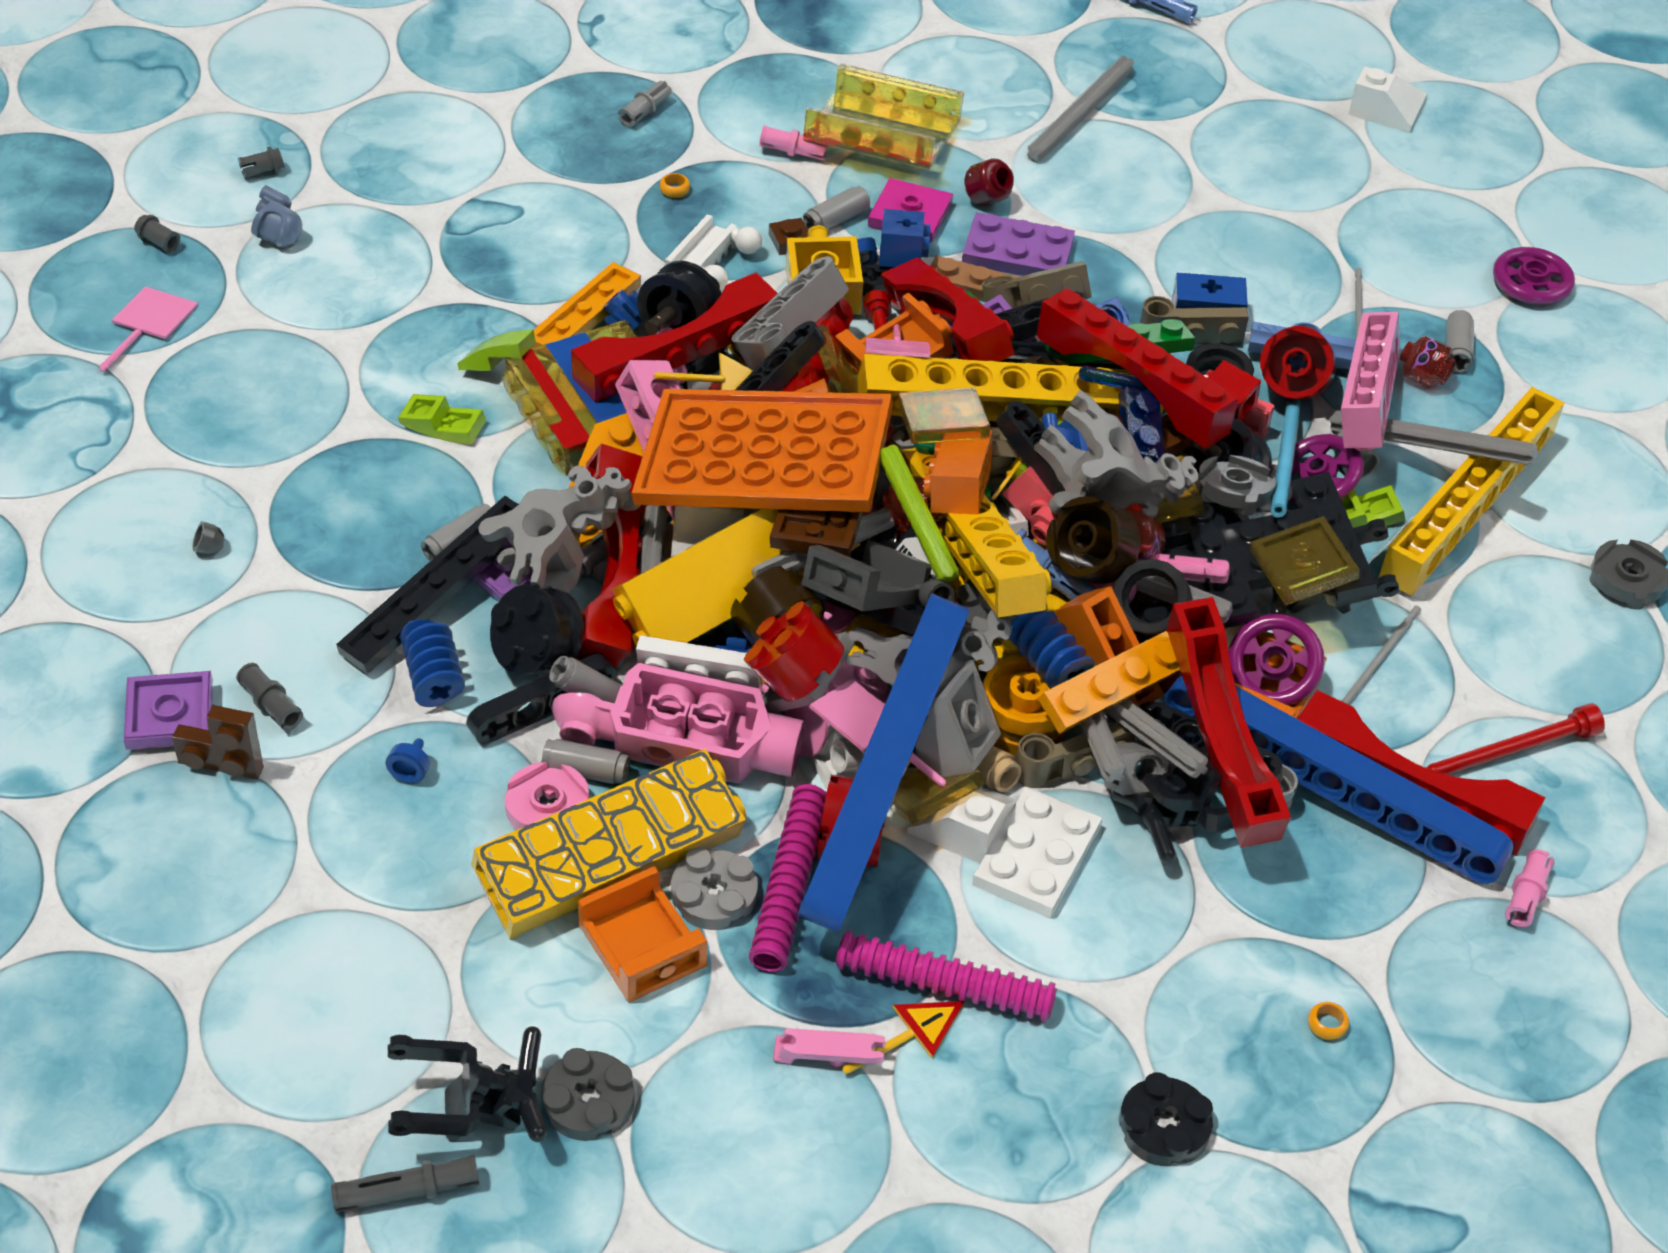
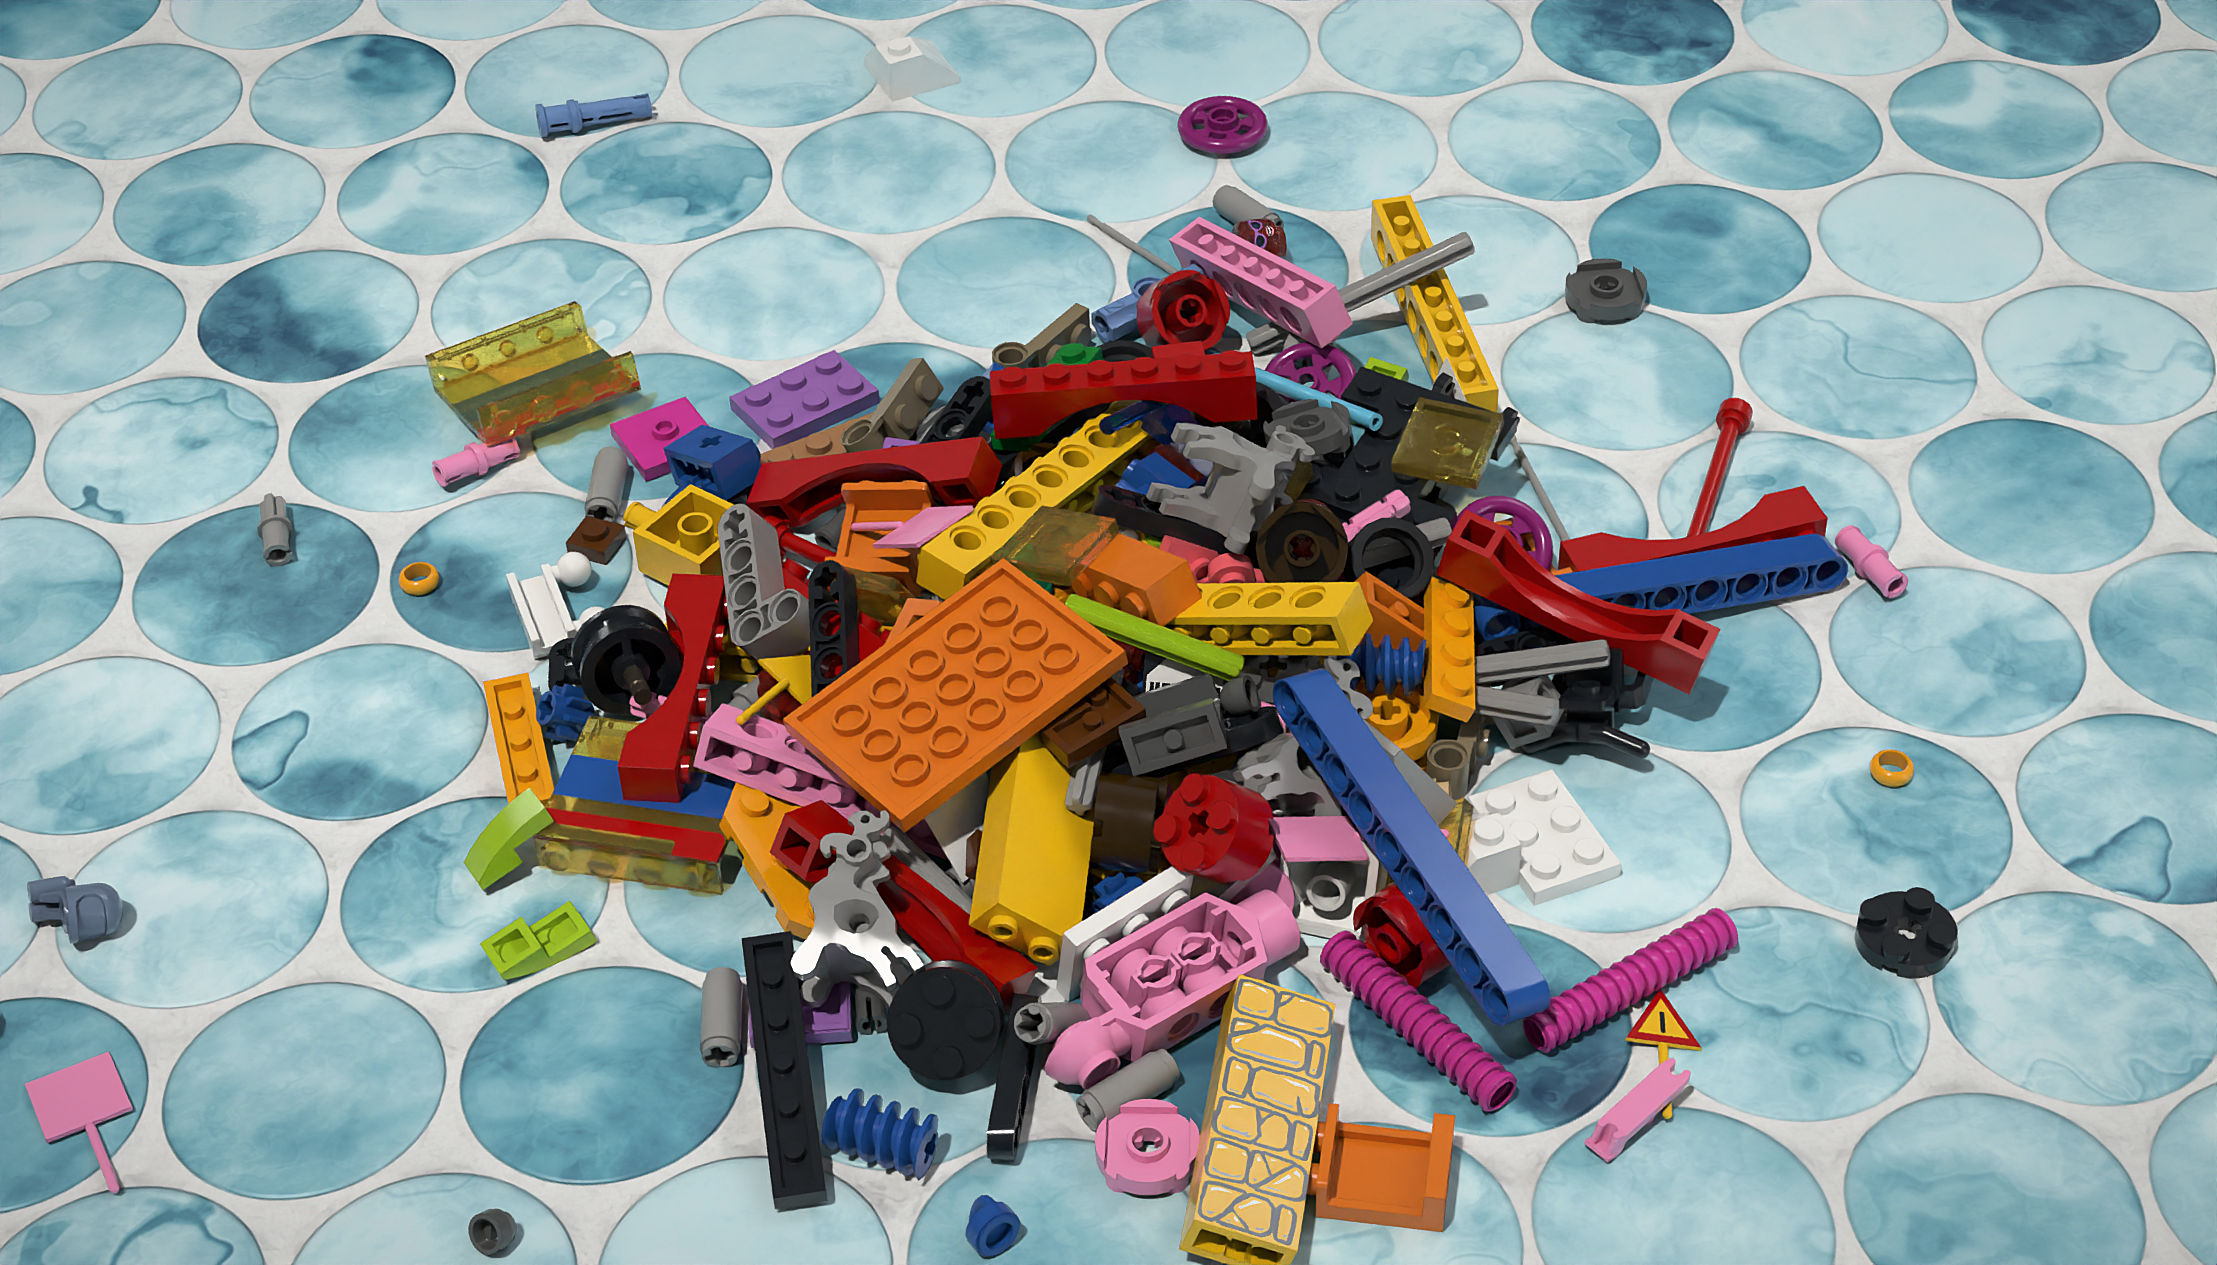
camera: 45 degrees left, 5 degrees down
(714, 867) = (1380, 1062): light grey plate -> none
(989, 182) = (709, 361): dark red head -> none
(1080, 108) = (677, 249): light grey axle -> none
(1209, 291) = (1024, 315): blue brick -> none

